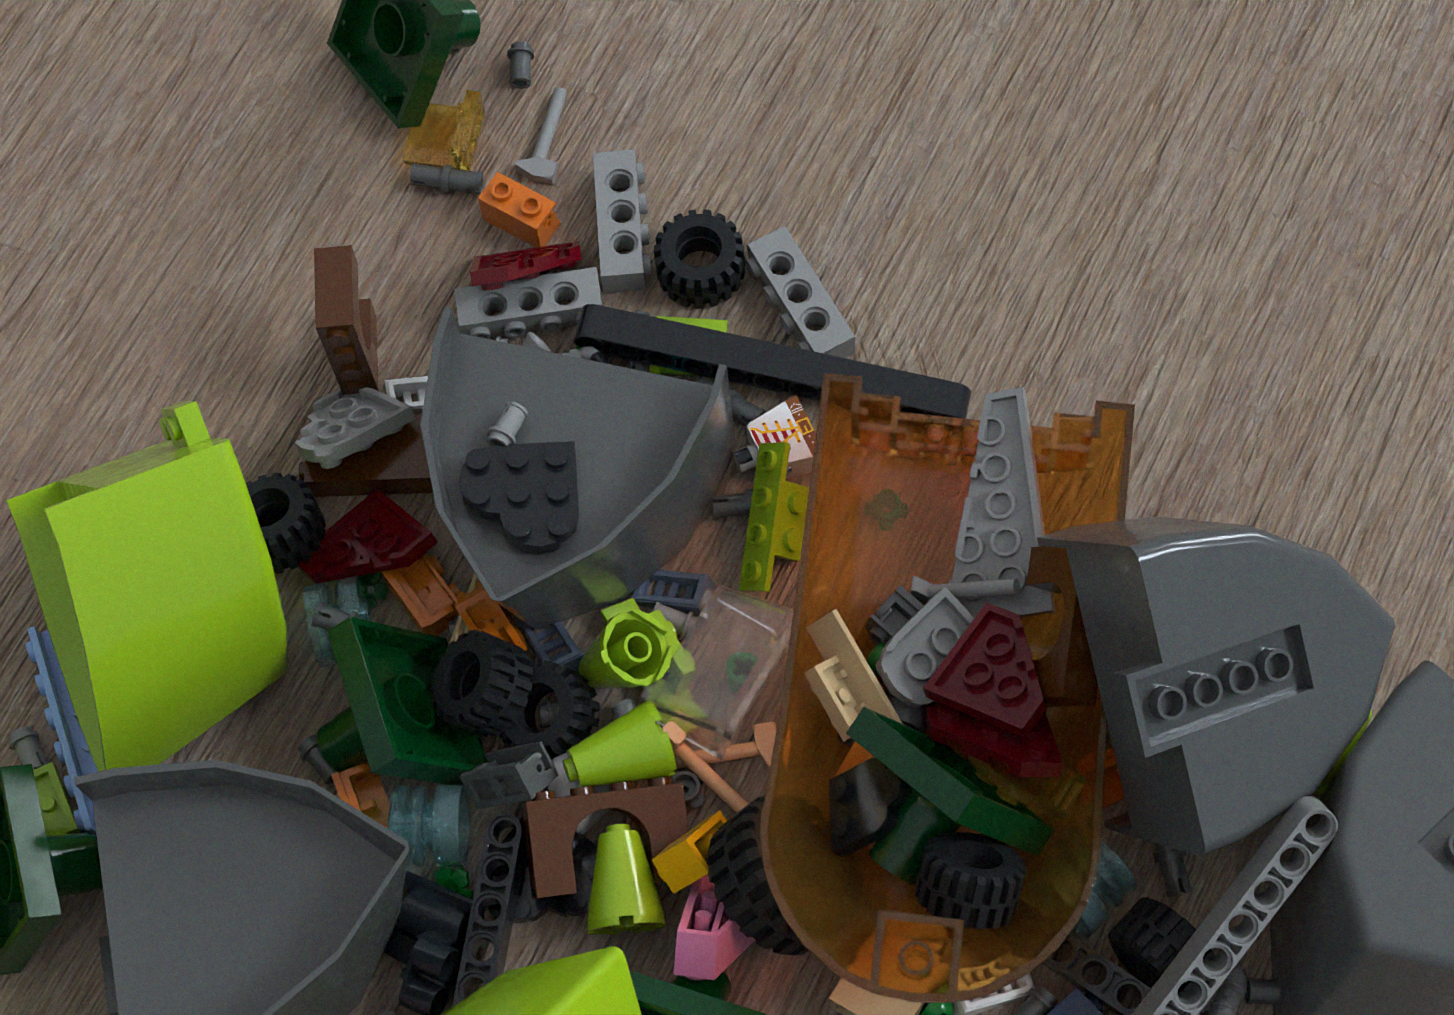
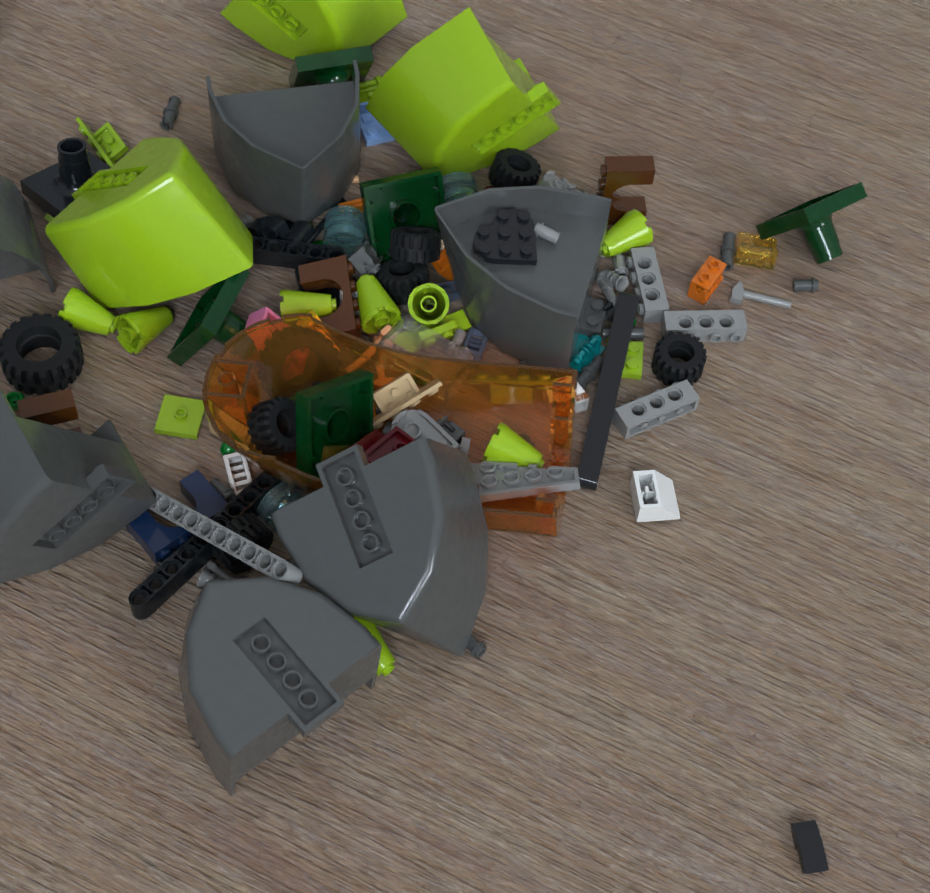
camera: 80 degrees right, 10 degrees down
(330, 617) = (449, 180): dark grey pin -> none
(414, 322) = (627, 233): none -> lime cone
(522, 264) = (669, 273): dark red plate -> none
(930, 514) = (512, 448): none -> lime cone
(983, 306) = (653, 496): none -> white slope

